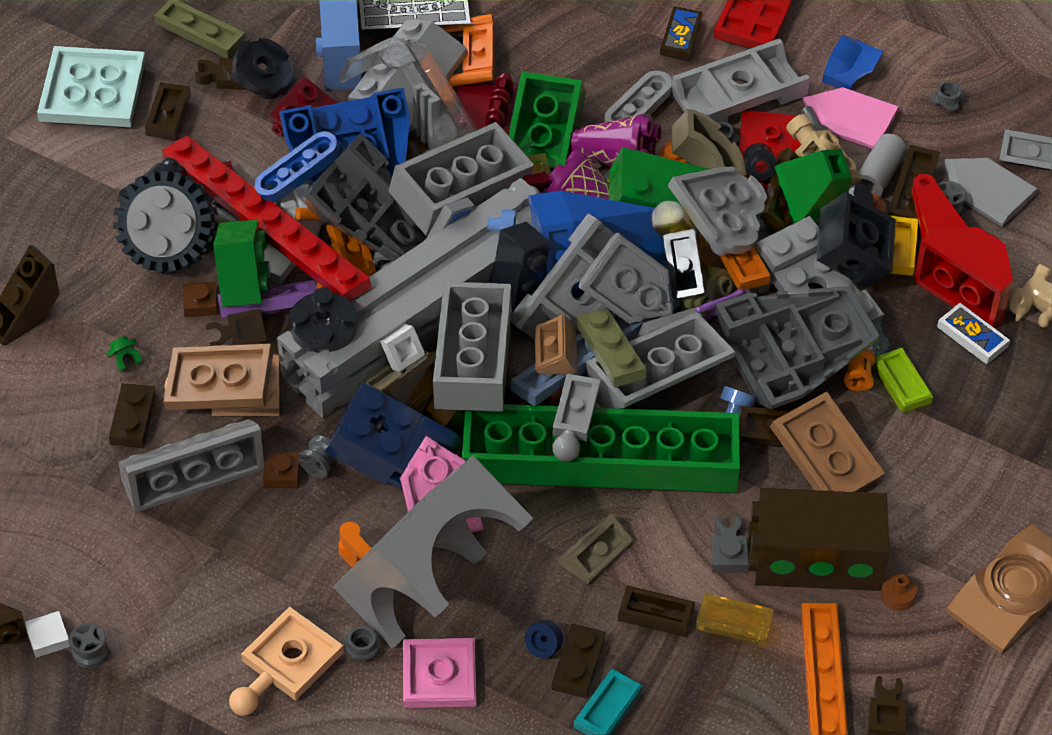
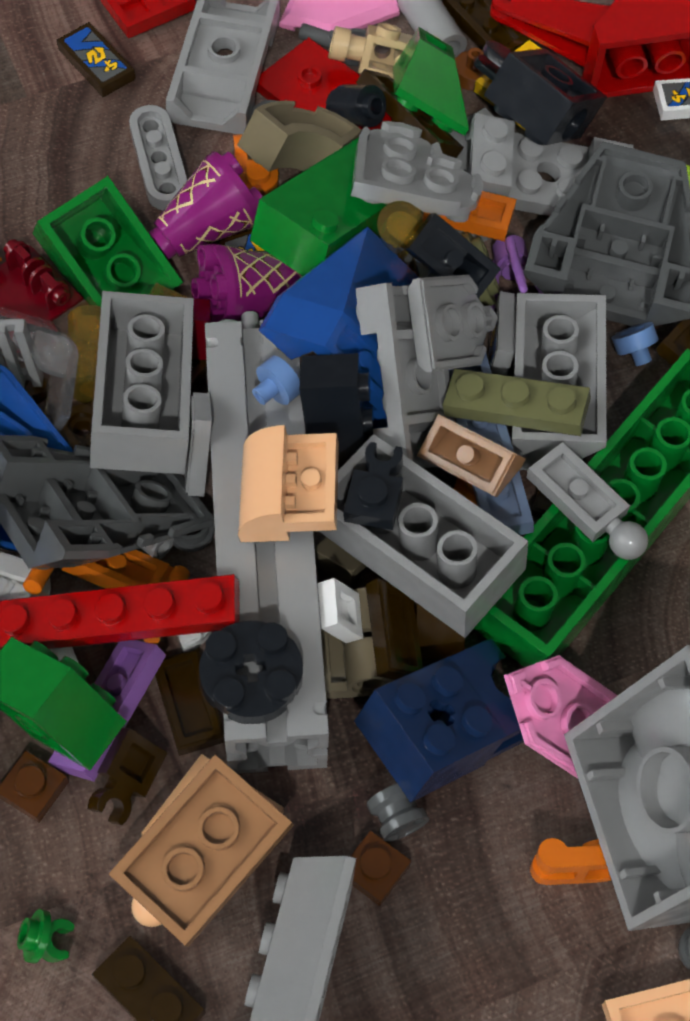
camera: 55 degrees left, 10 degrees up
(440, 263) = (287, 484): none -> light nougat brick
(471, 303) = (376, 493): none -> black plate

